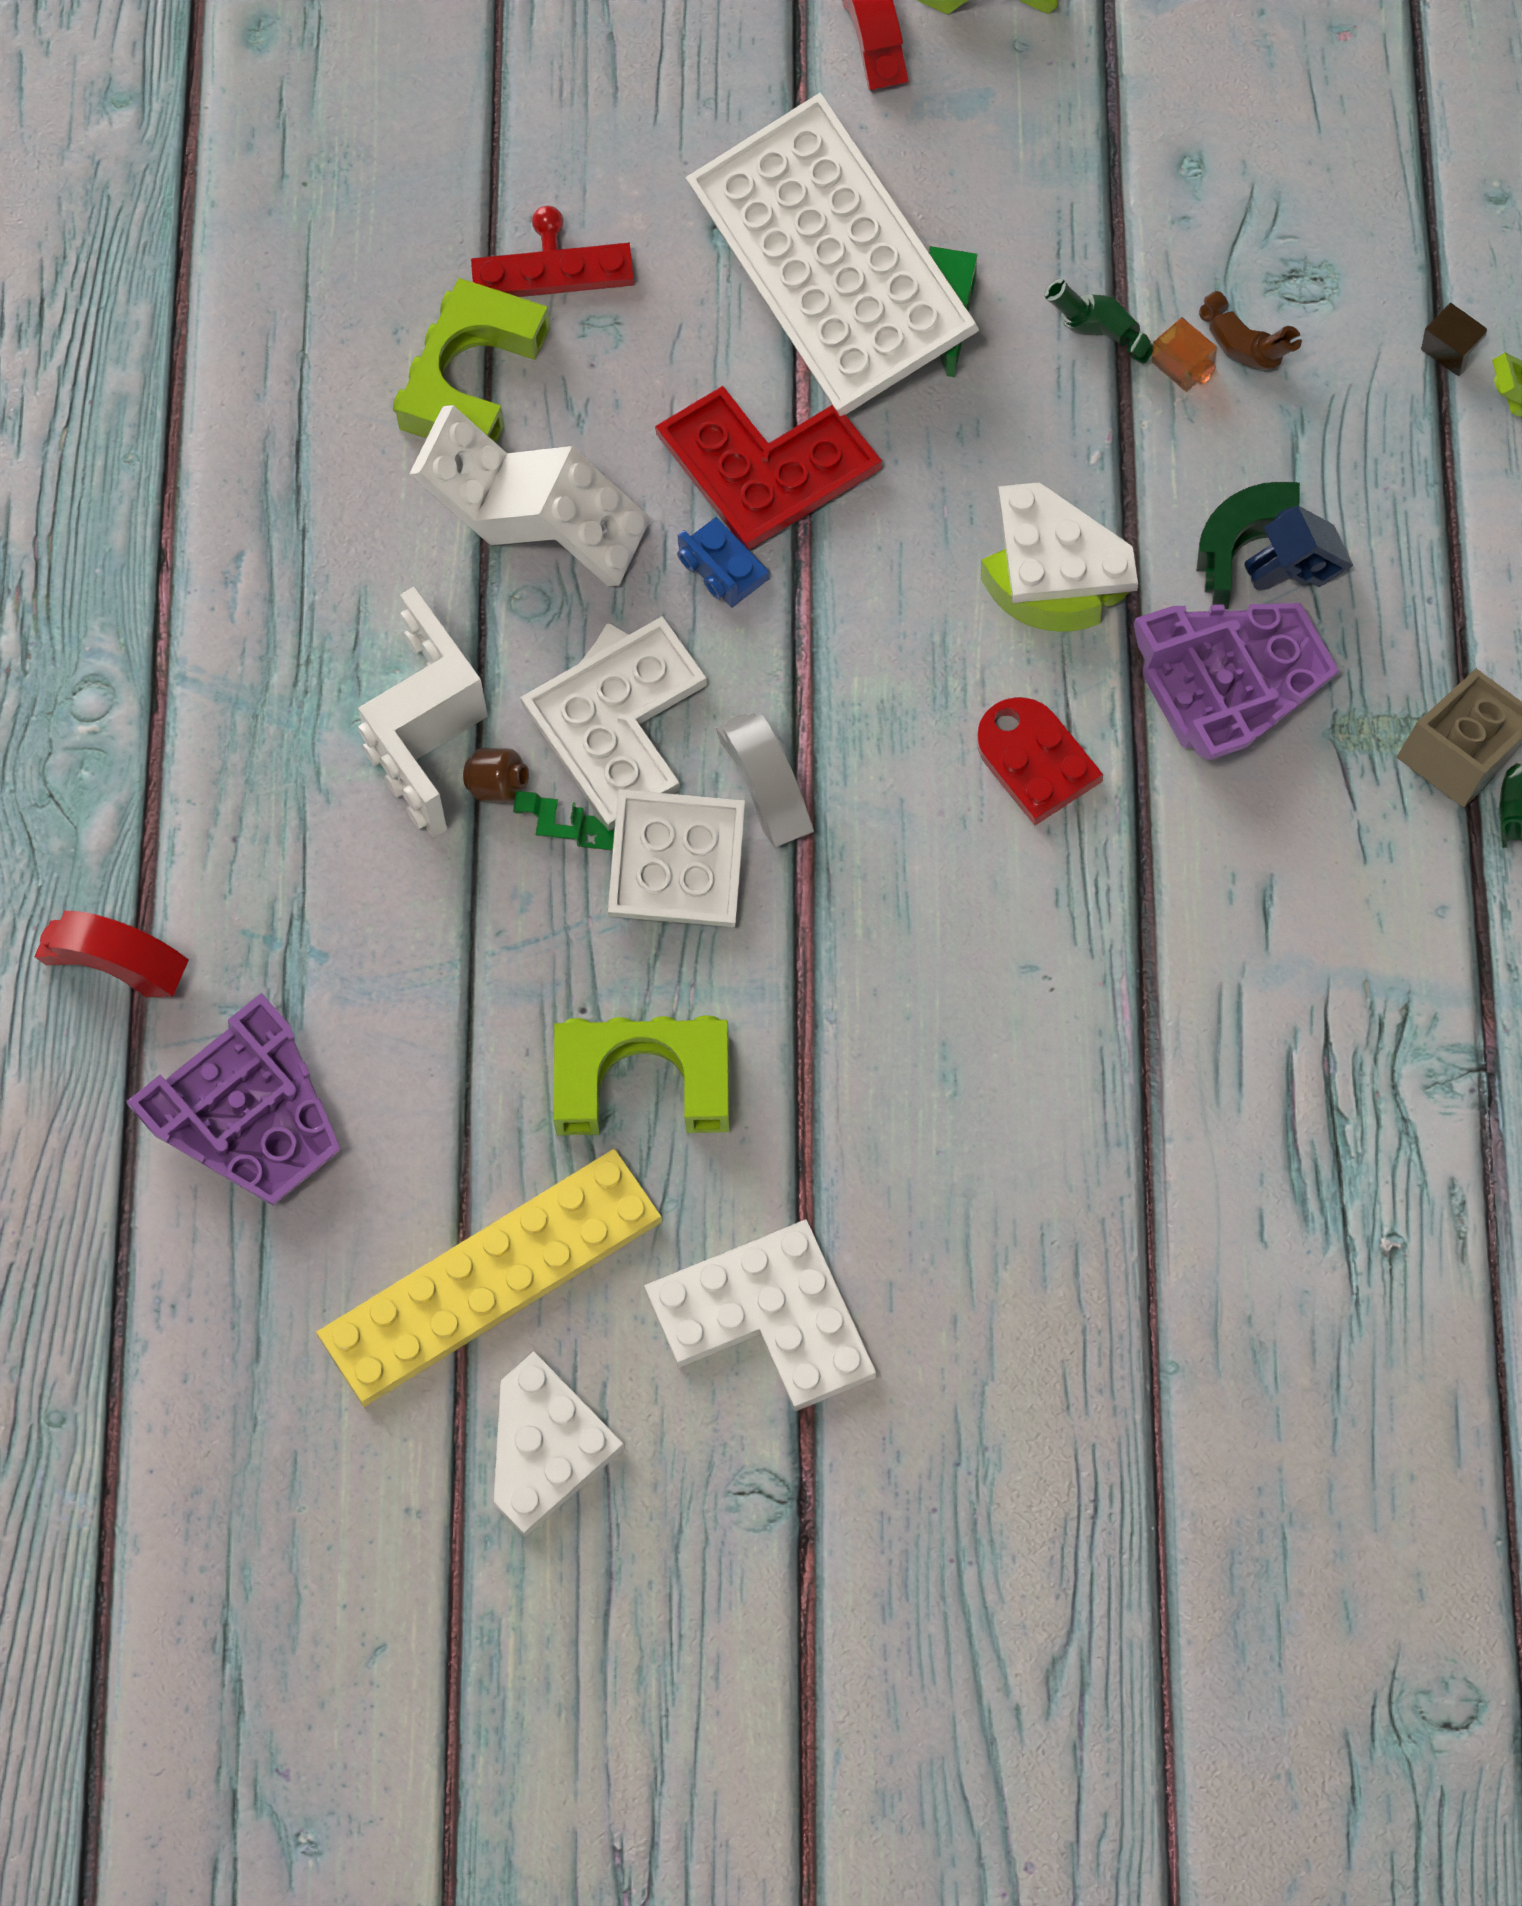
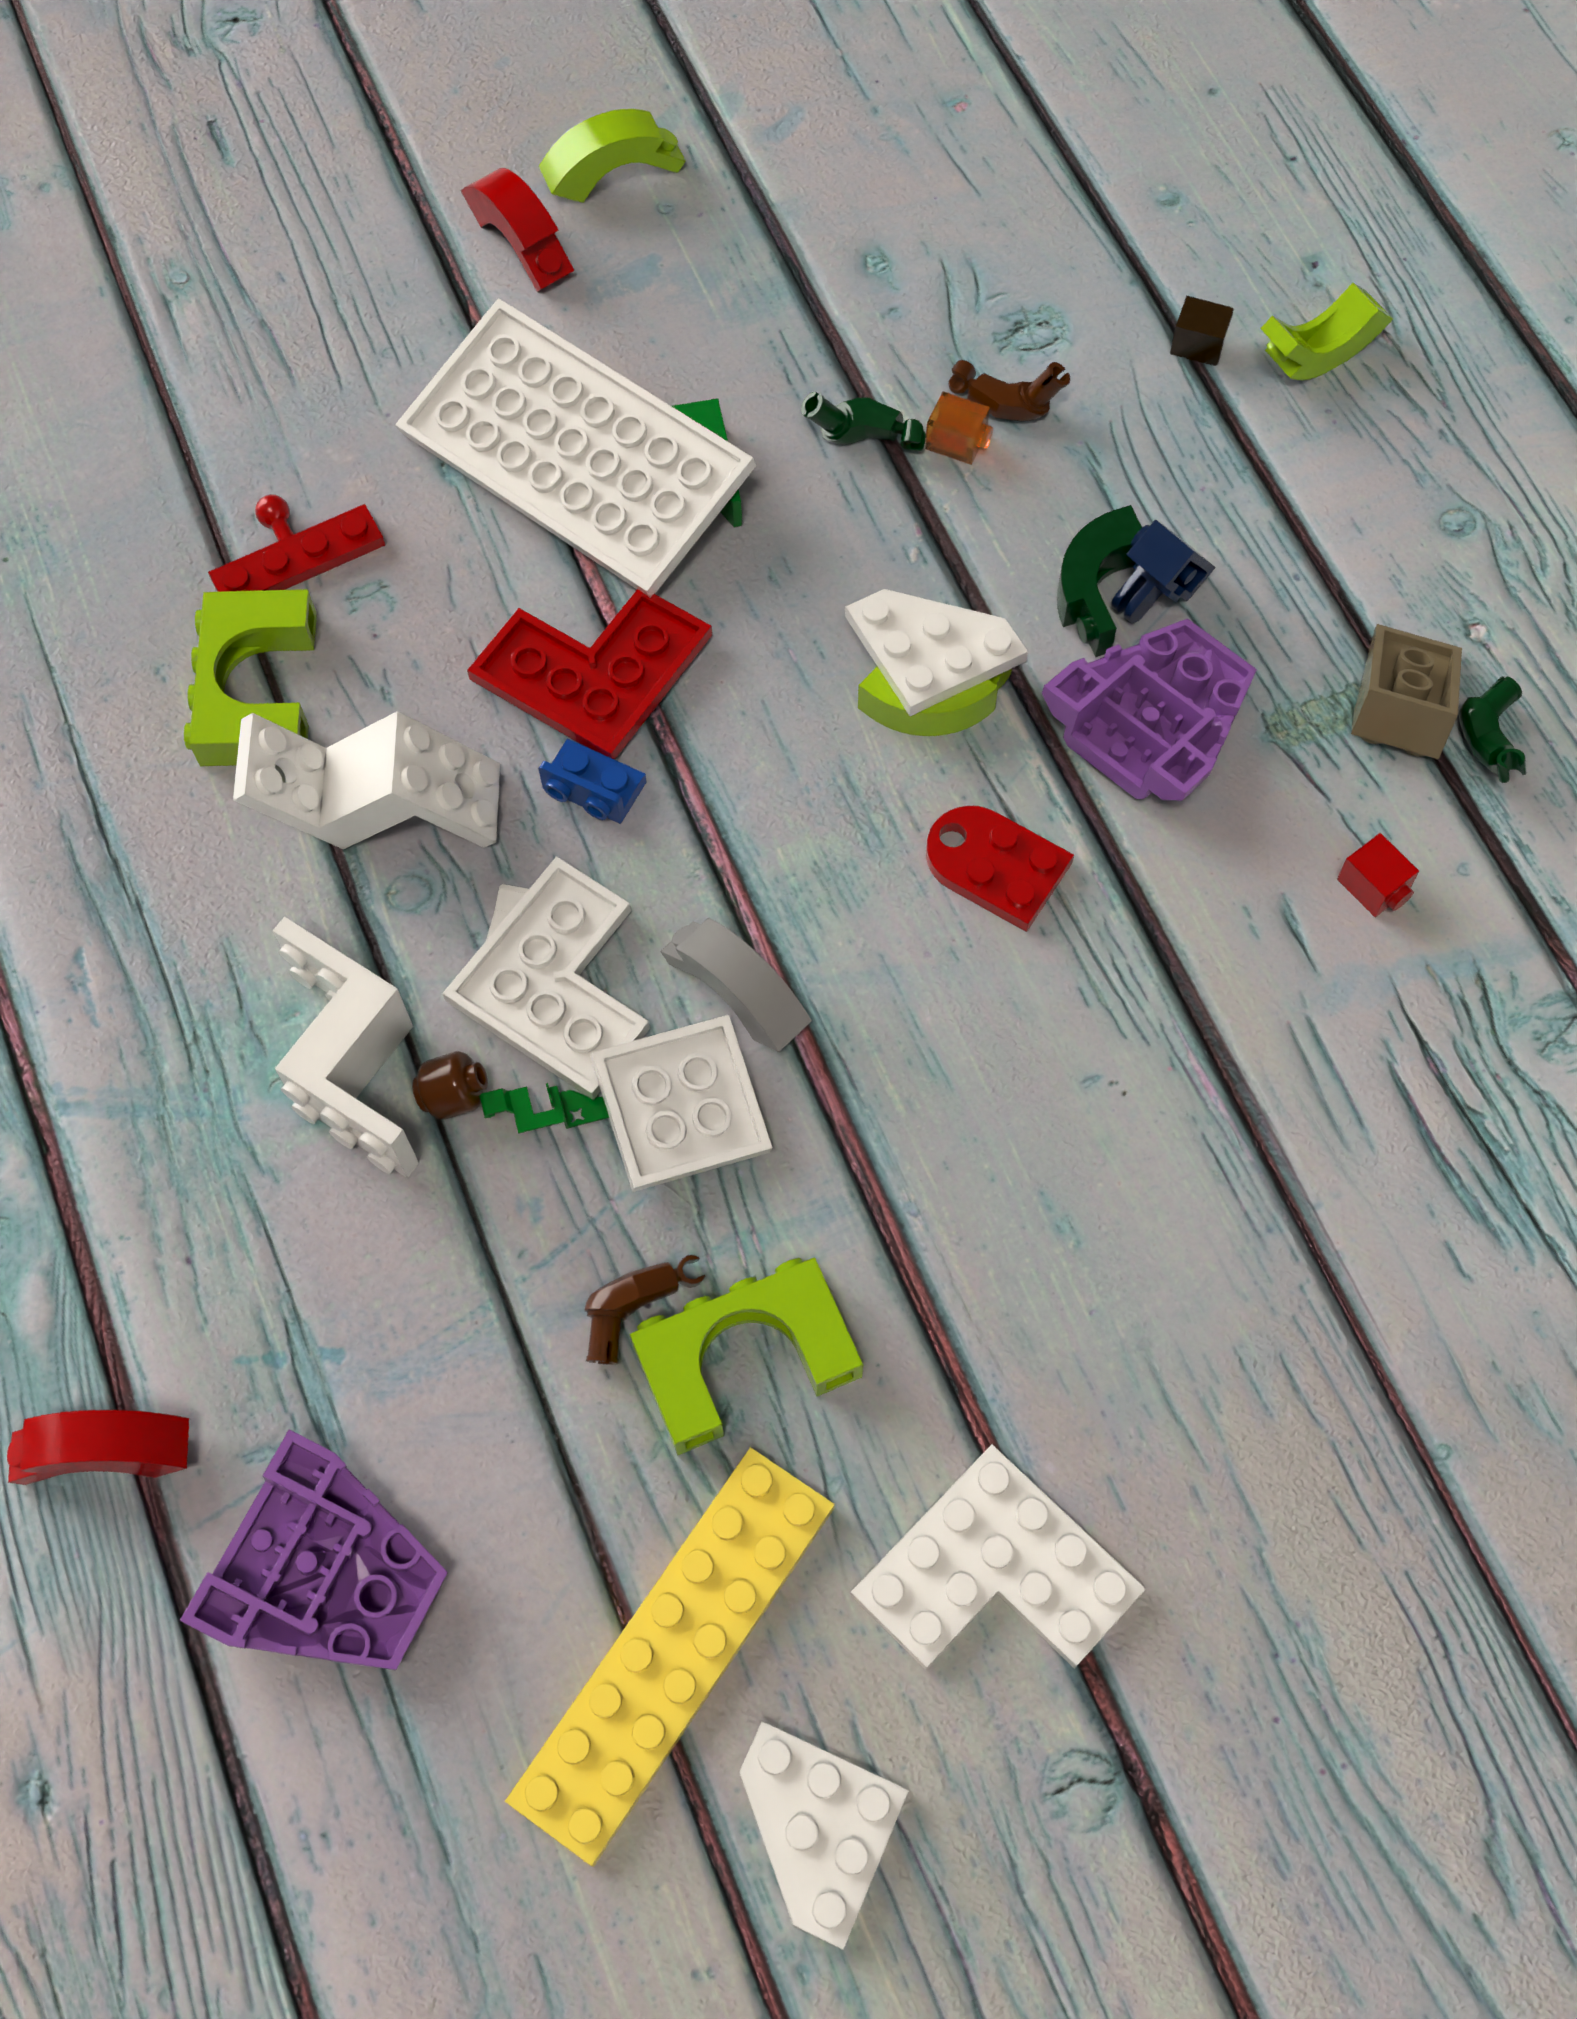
camera: 25 degrees left, 0 degrees up
(564, 995) = (623, 1297): none -> reddish brown arm
(1356, 888) = (1379, 876): none -> red brick

